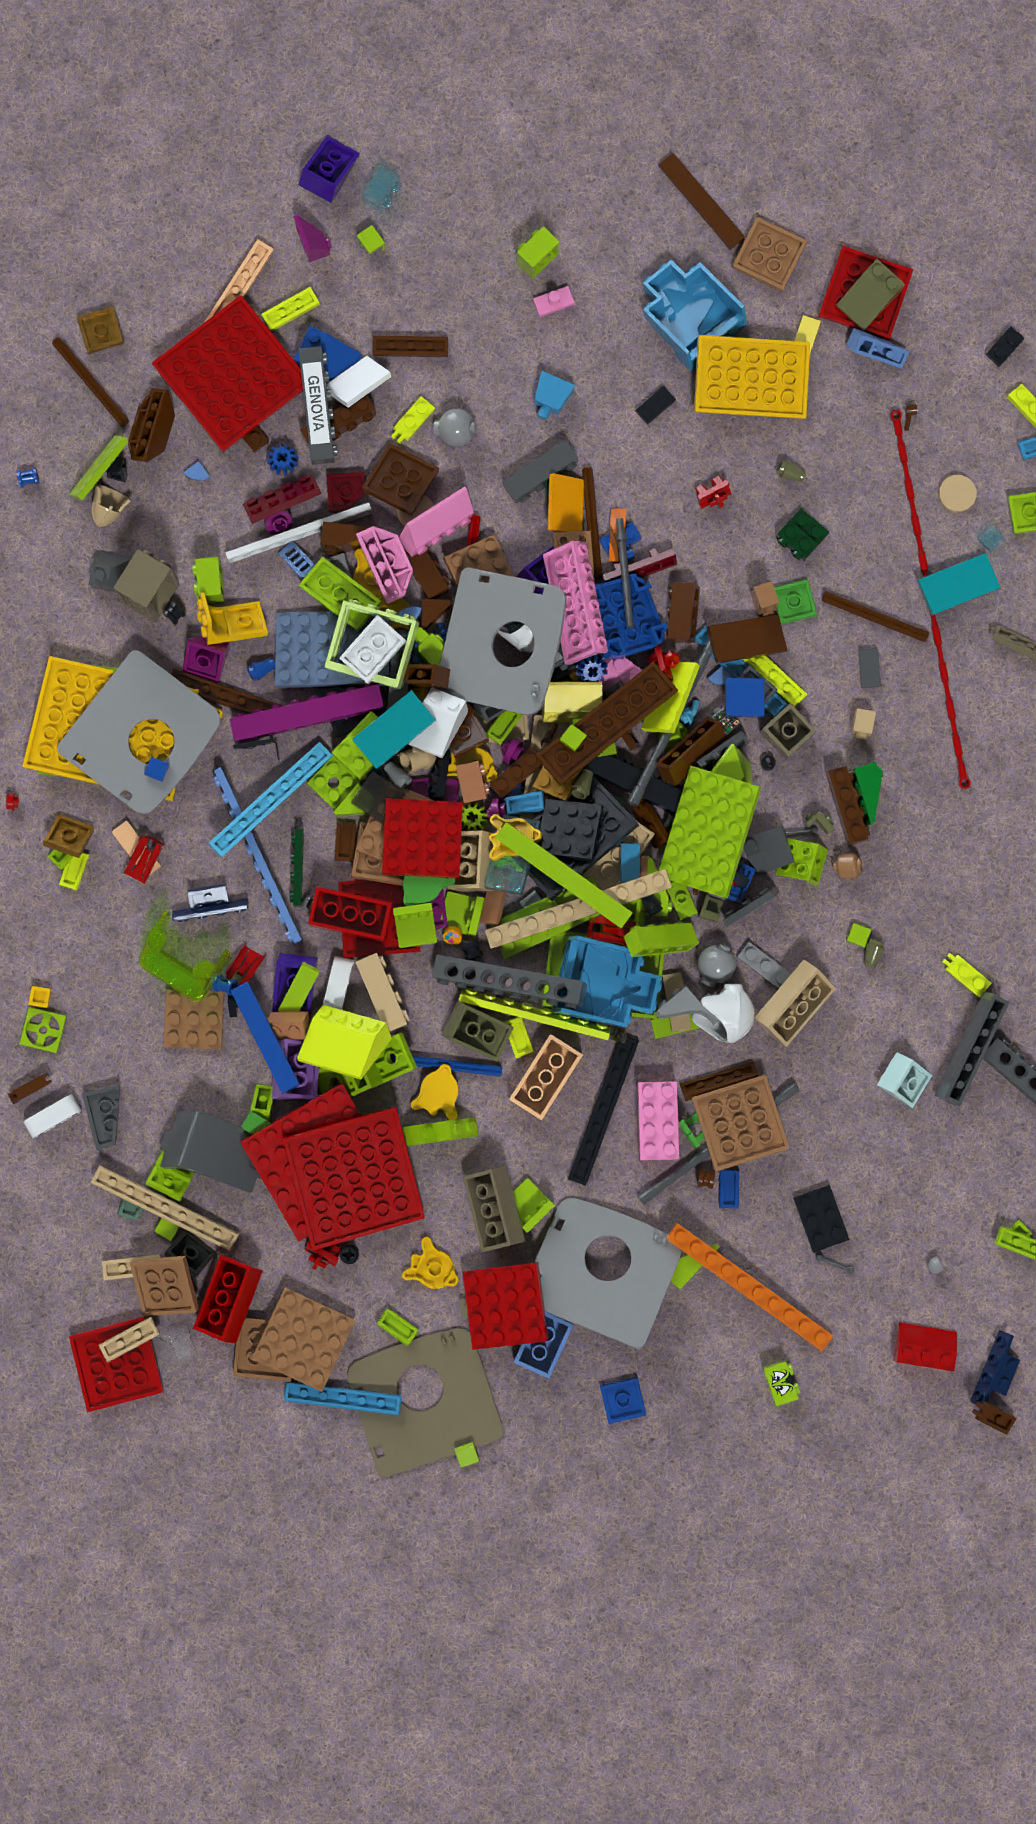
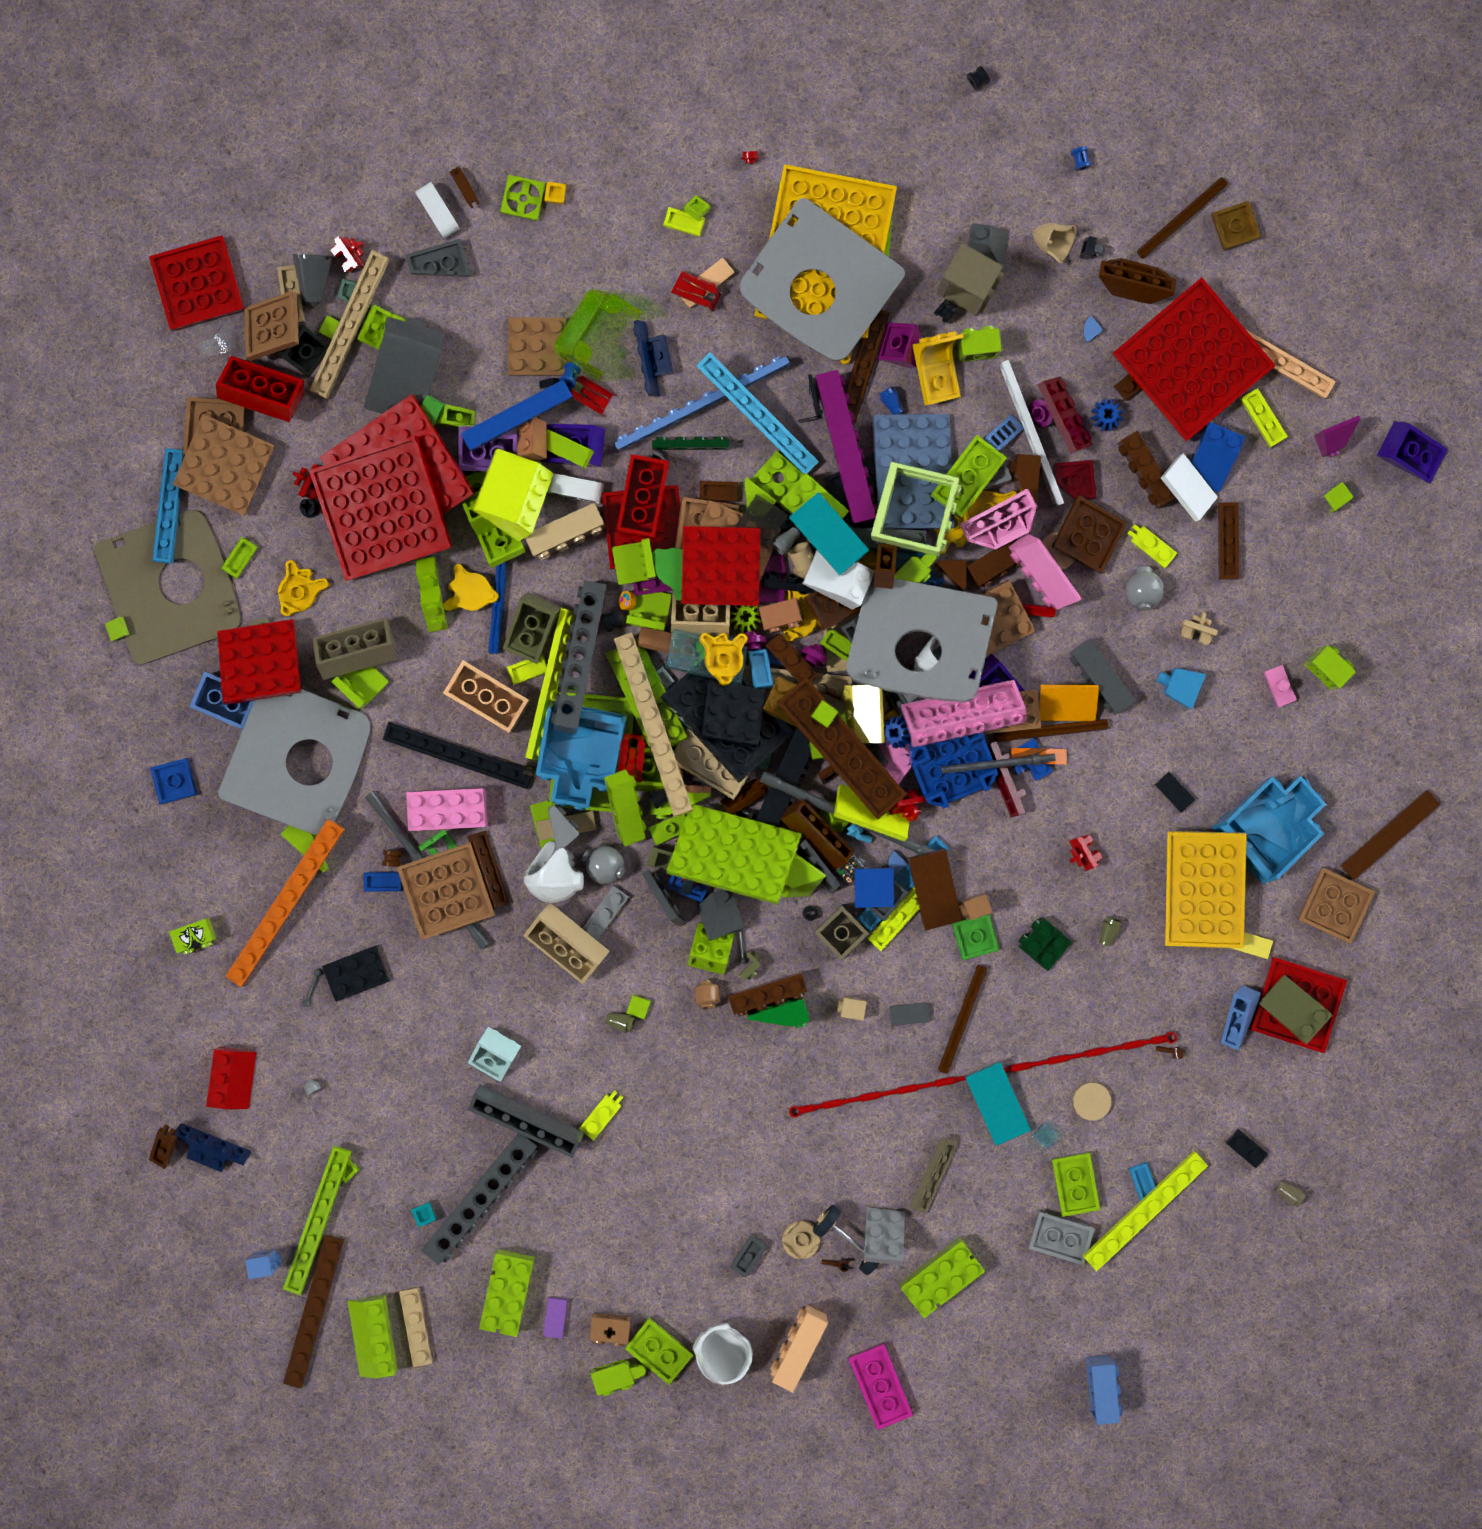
camera: 90 degrees right, 5 degrees up
(68, 836) = (716, 214): pearl gold plate -> none
(89, 1205) = (352, 252): none -> red hips
(99, 467) = (1091, 228): lime tile -> none
(114, 1244) = (312, 276): none -> dark grey cone
(129, 1339) = (219, 294): tan tile -> none
(156, 769) = (783, 298): blue tile -> none
(316, 405) = (1161, 445): brick -> none
(372, 649) = (909, 509): white tile -> none
(381, 188) = (1392, 506): clear light blue brick -> none
(412, 611) = (951, 549): medium blue tile -> none
(500, 370) = (1189, 627): none -> tan hips
(564, 875) = (684, 707): lime tile -> none
(582, 785) = (778, 725): olive cone -> none
(629, 862) = (702, 775): dark azure tile -> none
(683, 612) = (960, 824): reddish brown brick -> none

